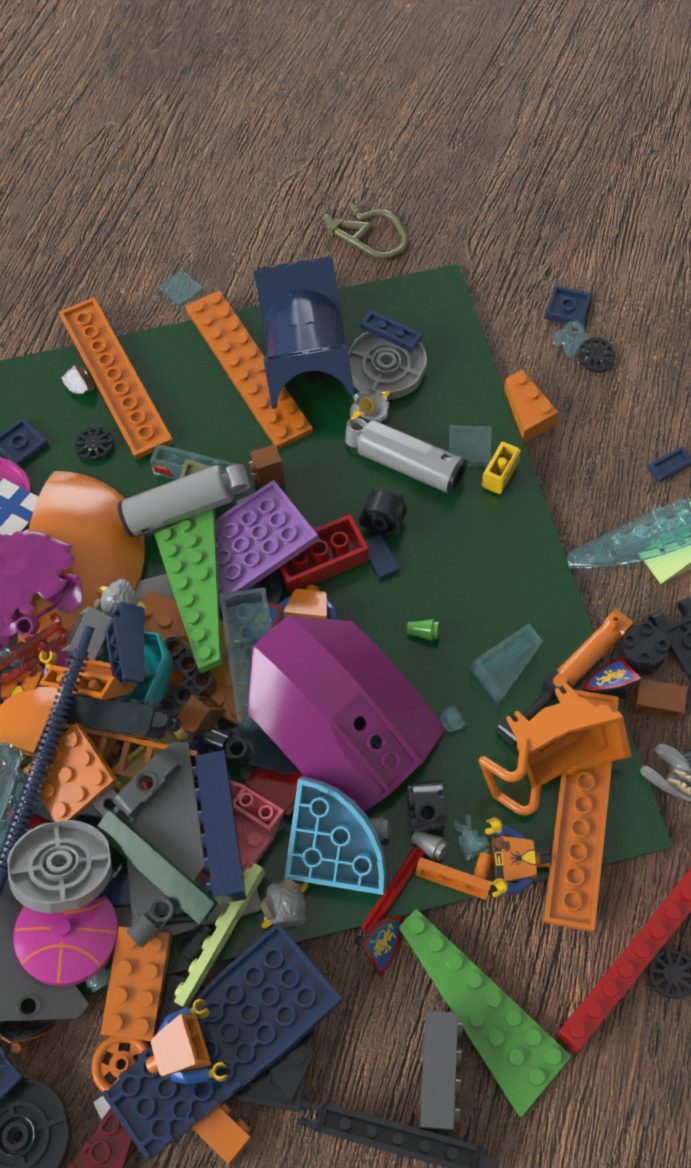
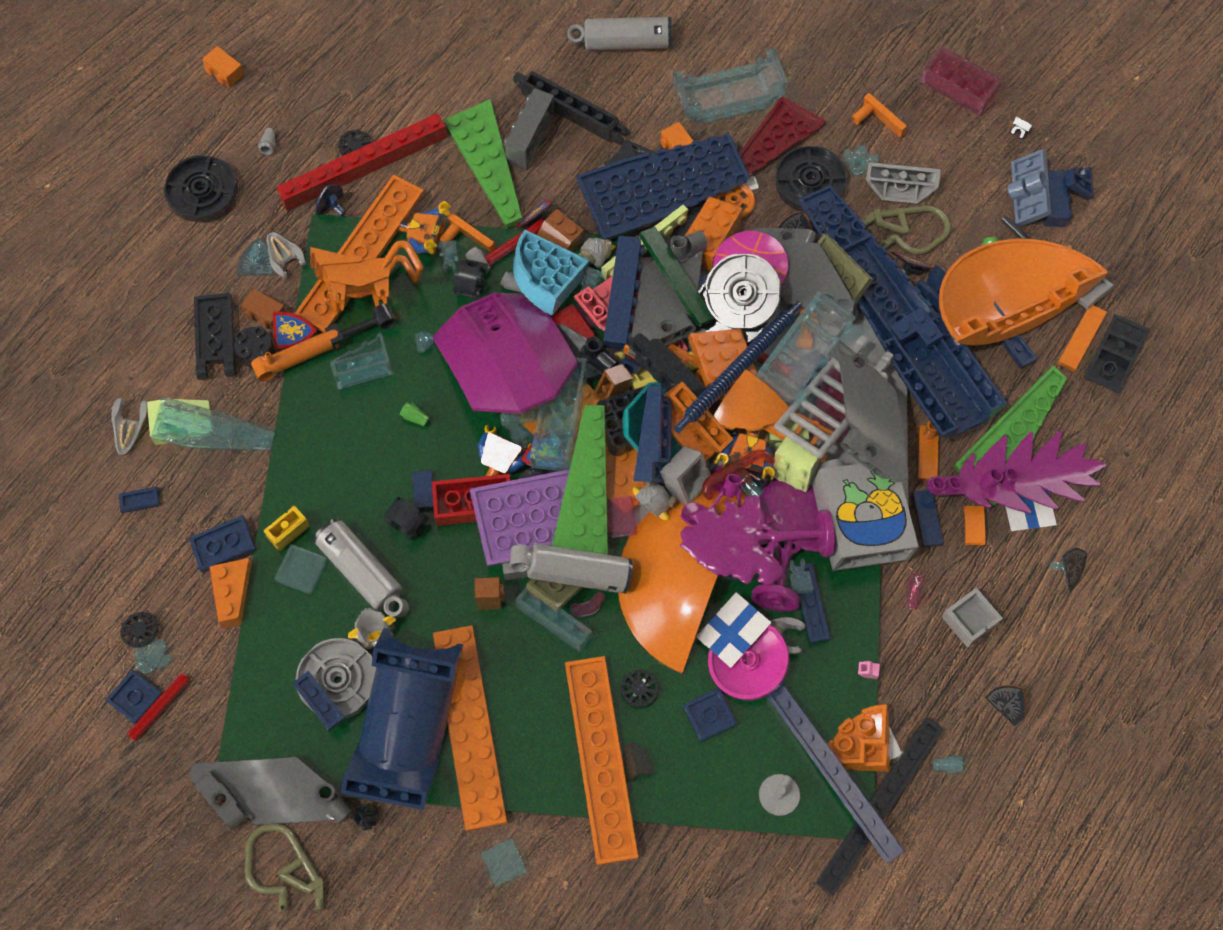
camera: 165 degrees left, 5 degrees up
(153, 582) = (620, 517): none -> clear pink tile
(181, 1048) = (690, 176): torso -> none
(276, 862) = (591, 278): none -> clear light blue piece
(338, 913) = (562, 231): none -> dark orange slope
(431, 262) = (267, 792): none -> dark grey panel
(540, 305) = (158, 707): none -> red axle
(561, 448) = (222, 543): none -> dark blue tile
(649, 862) = (329, 198): none -> dark blue shield

